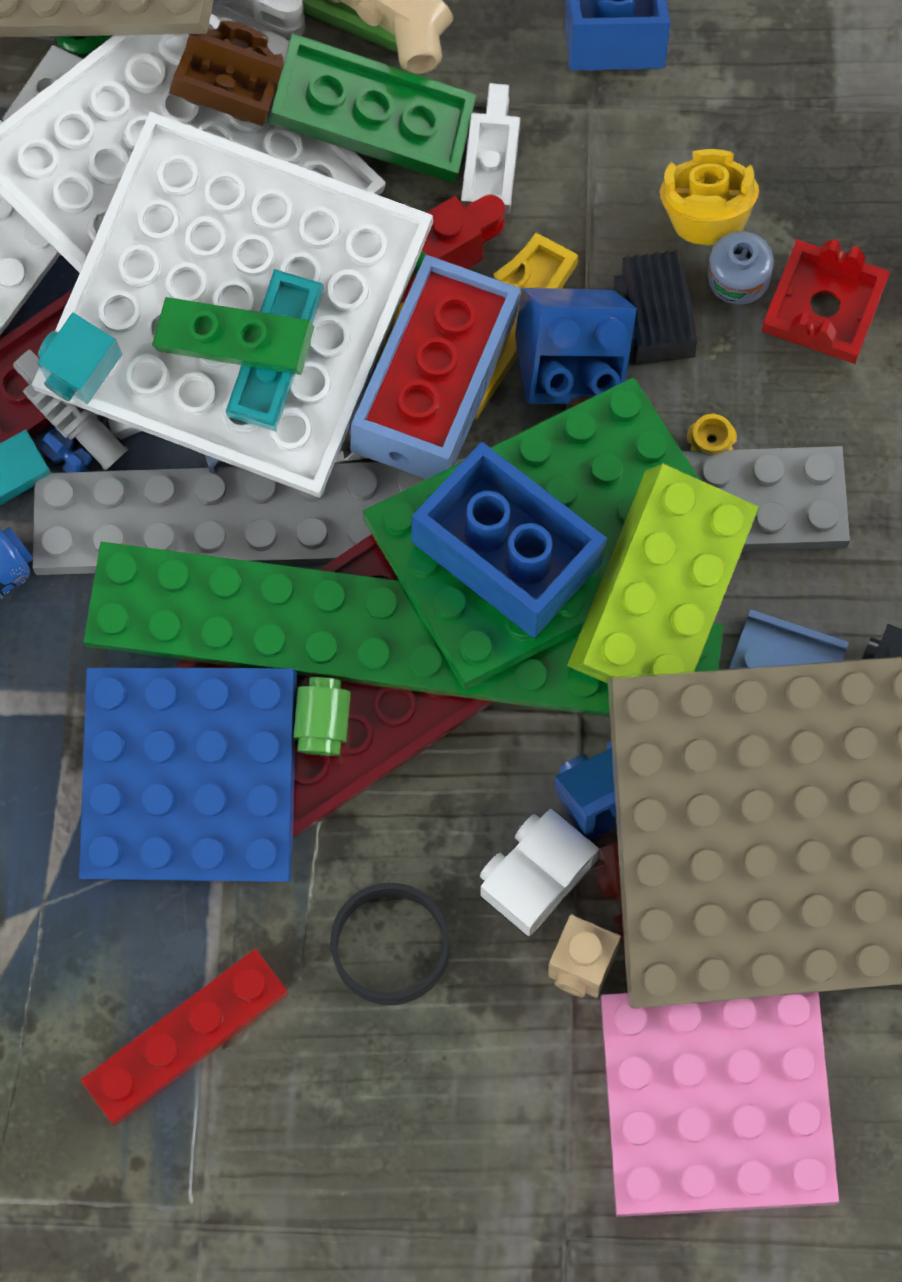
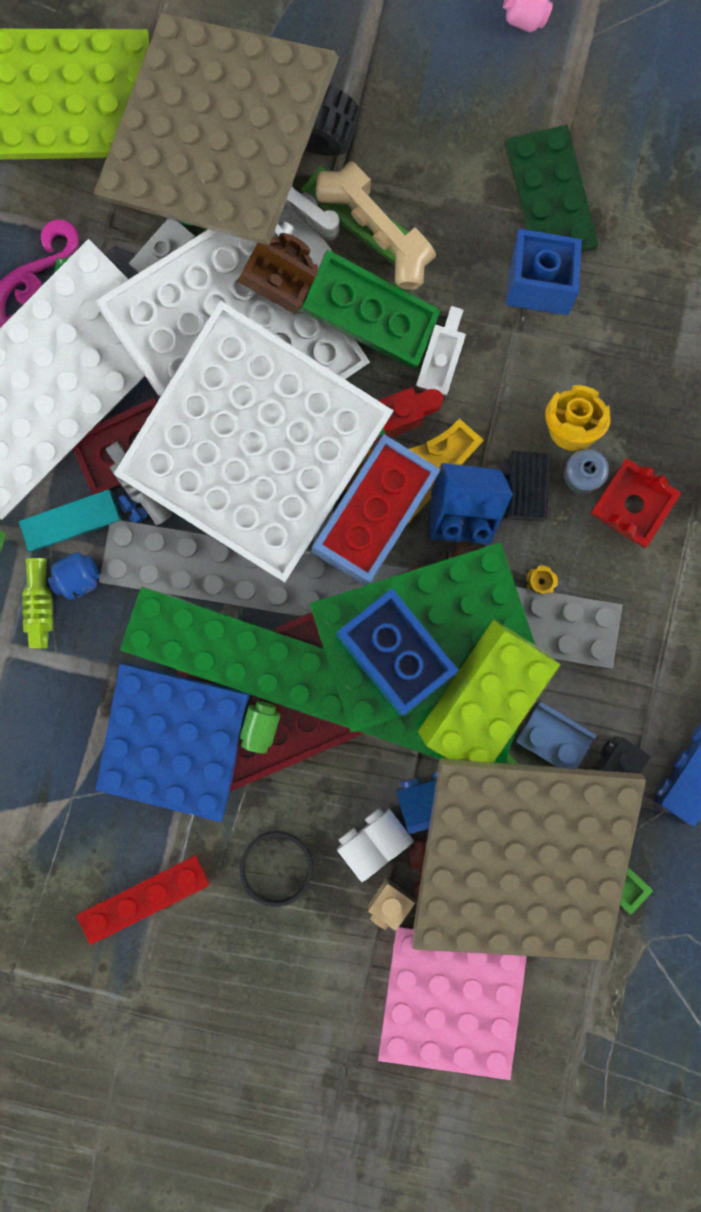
camera: 10 degrees right, 15 degrees up
(77, 359) = (143, 468): teal brick -> none
(233, 335) = (247, 472): green plate -> none
(262, 393) = (273, 483): teal tile -> none

